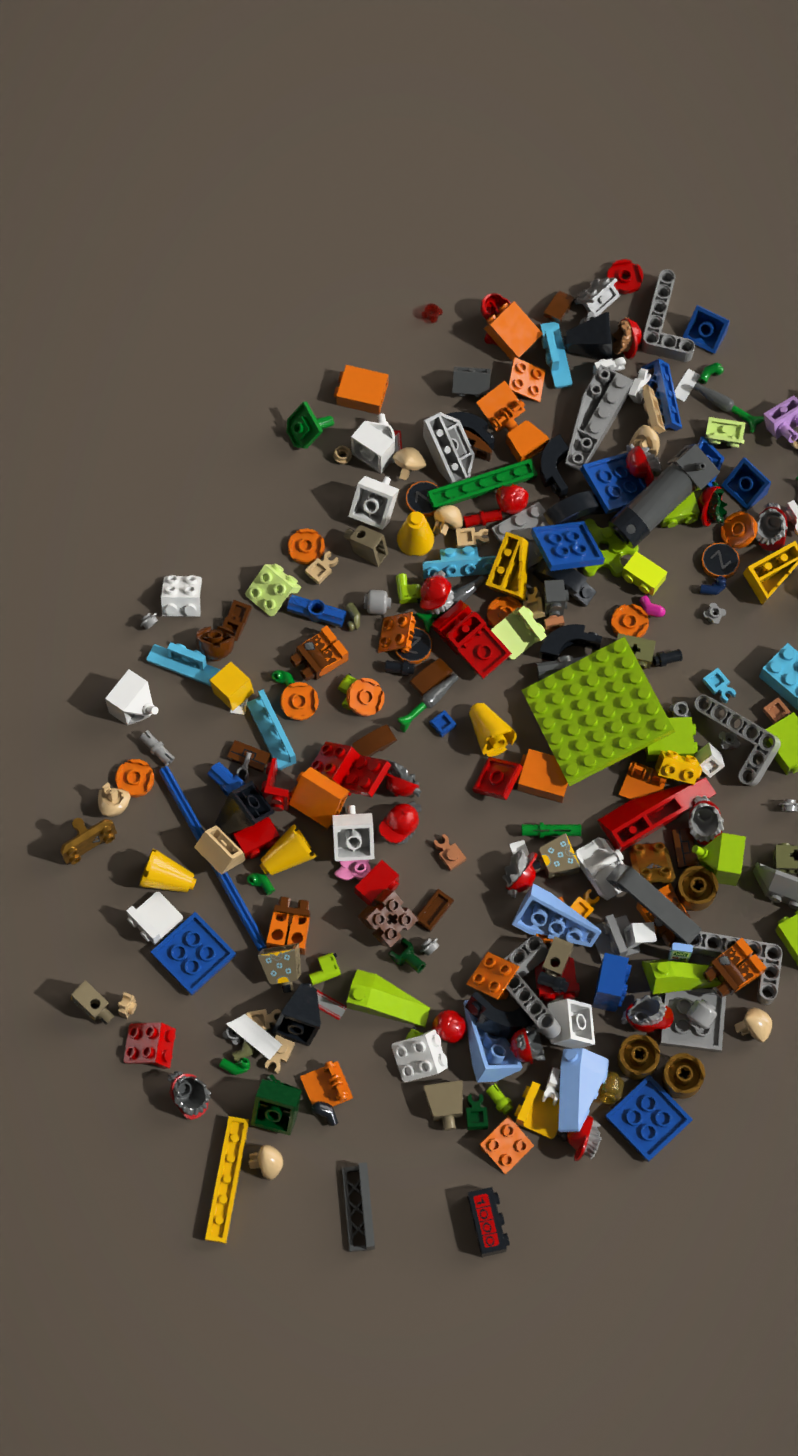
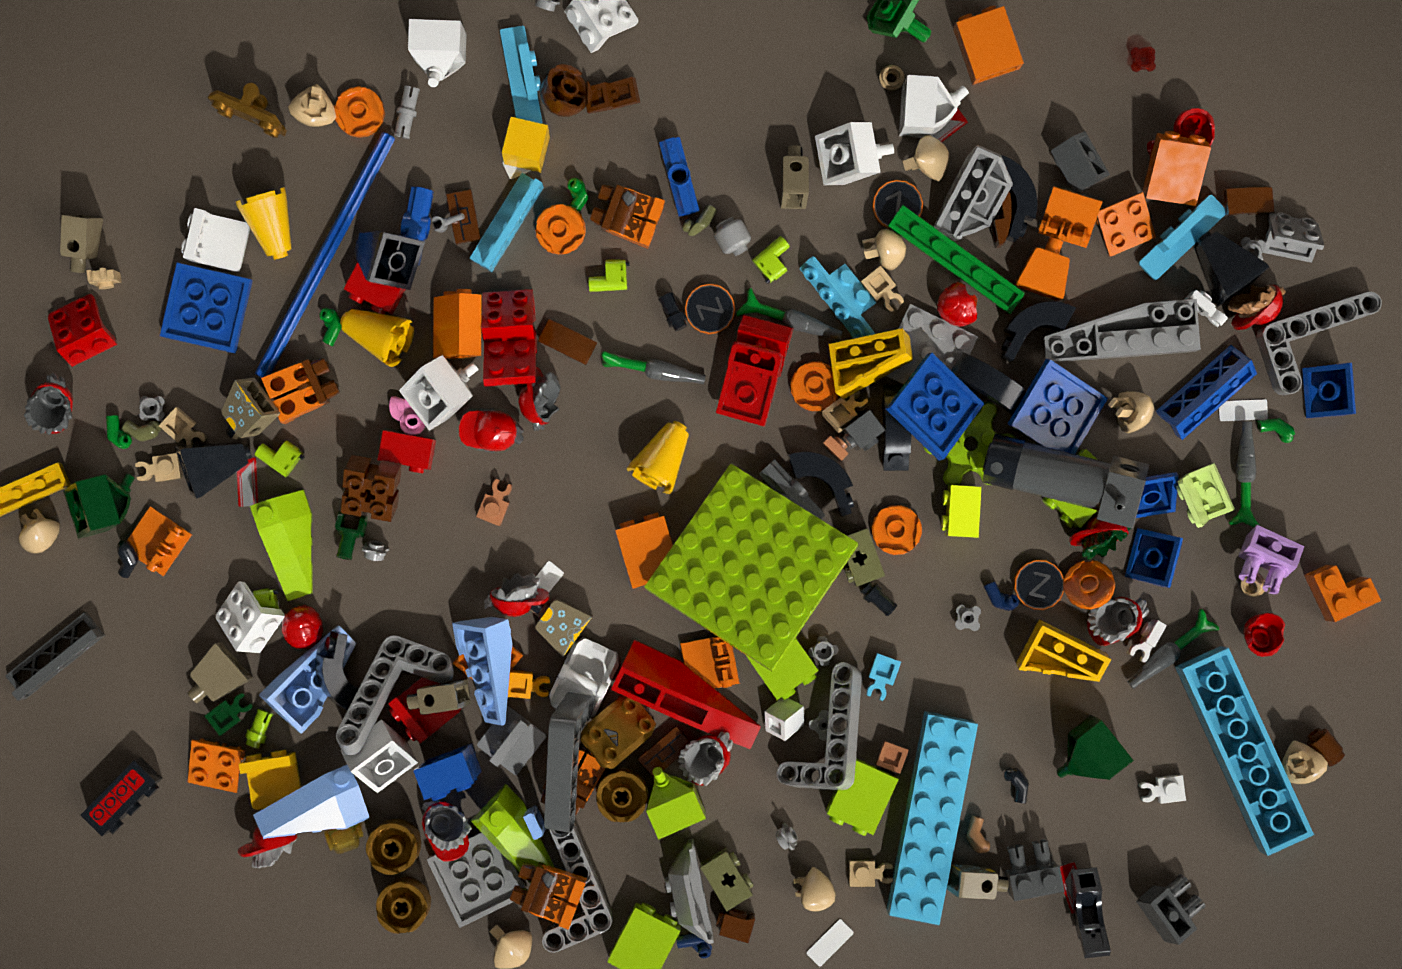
camera: 55 degrees right, 20 degrees up
(219, 850) = (328, 260): tan slope -> none
(255, 1035) = (156, 433): white sticker -> none
(271, 588) = (675, 109): yellowish green bracket -> none
(276, 797) = (430, 265): red bracket -> none
(306, 546) = (752, 112): orange tile -> none
(320, 570) = (731, 146): tan plate -> none
(365, 697) = (611, 297): orange tile -> none
(397, 633) = (708, 282): orange hinge -> none
(415, 535) = (842, 227): yellow cone -> none
(431, 676) = (684, 353): reddish brown slope -> none
(434, 910) = (420, 528): reddish brown tile -> none
(436, 593) = (783, 296): red hair -> none
(443, 723) = (639, 401): blue tile -> none
(482, 518) = (915, 286): red pin -> none
(493, 976) = (380, 640): orange hinge -> none
(497, 778) = (609, 503): red tile -> none
(519, 631) = (796, 415): yellowish green bracket -> none
(527, 829) = (591, 597): green pin -> none
(527, 1045) = (322, 725): hair -> none
(552, 1085) = (302, 775): white plate -> none
(558, 983) = (407, 716): black animal -> none
(635, 273) = (1355, 252): red plate -> none
(636, 390) = (1199, 360): white plate -> none
(639, 933) = (528, 766): white panel -> none
(642, 463) = (1096, 426): red hair -> none
(648, 1118) = (337, 895): blue plate -> none
(651, 609) = (926, 544): dark pink arm -> none
(652, 409) = (1179, 394): tan hinge -> none
(678, 767) = (747, 692): yellow brick -> none
(701, 1014) = (479, 886): light grey head -> none

